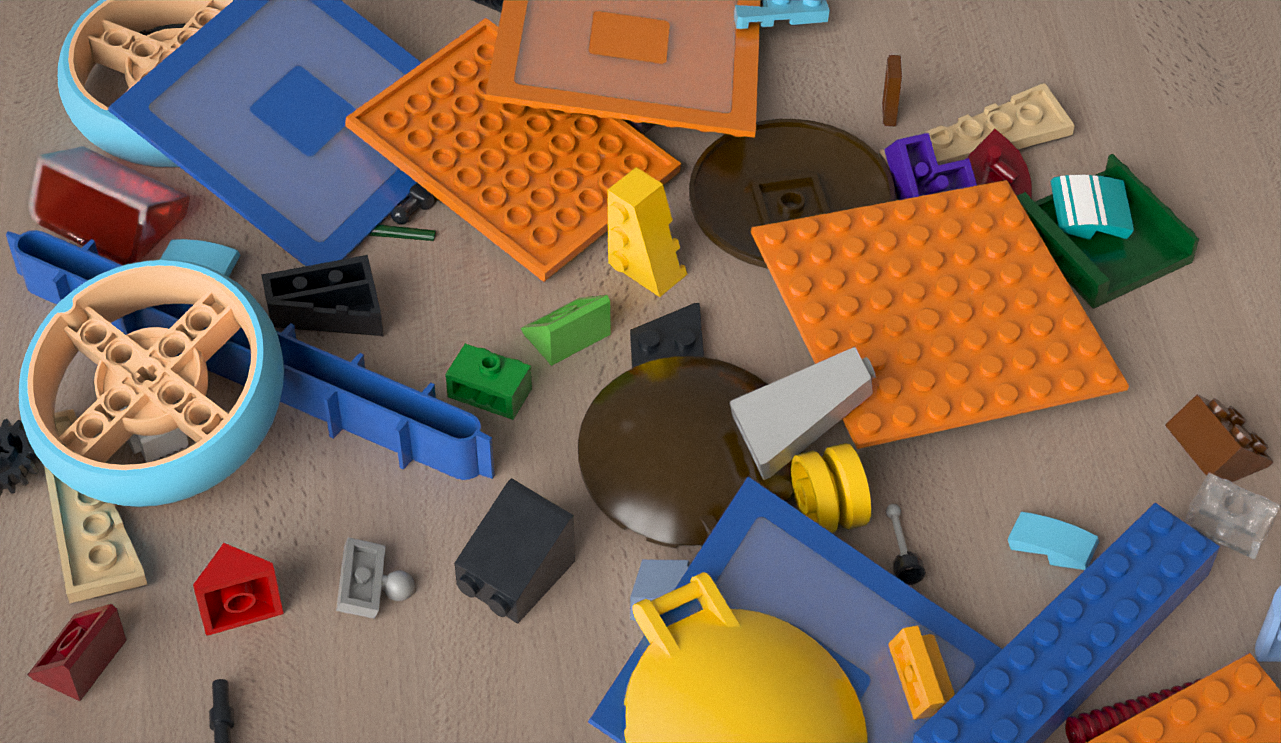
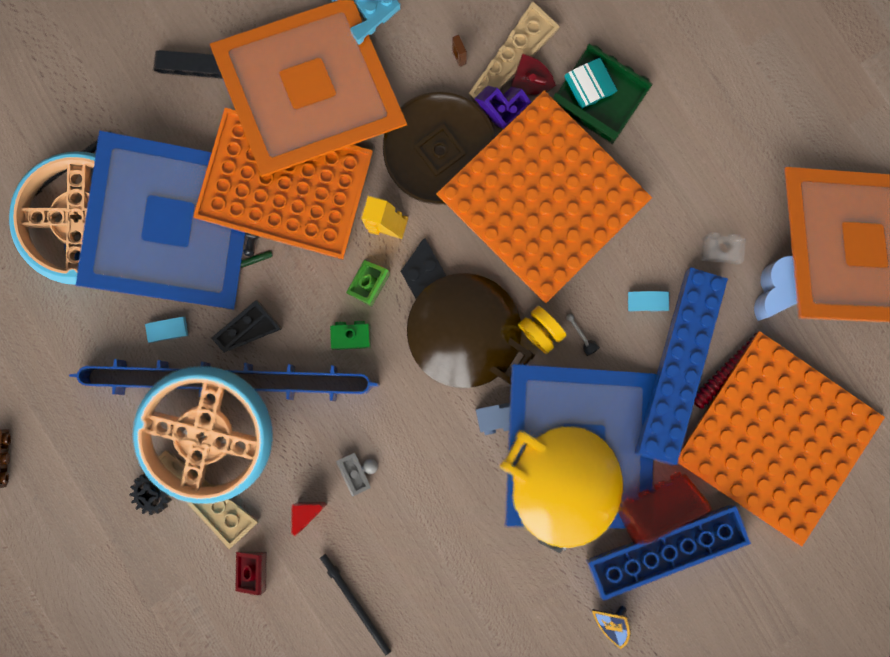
camera: 20 degrees left, 35 degrees up
(104, 201) = (98, 320): clear red windscreen -> none
(516, 552) = (416, 433): black slope -> none
(800, 408) = (512, 302): light grey slope -> none
(921, 672) = (626, 412): light orange panel -> none
(1218, 439) = (703, 207): reddish brown slope -> none

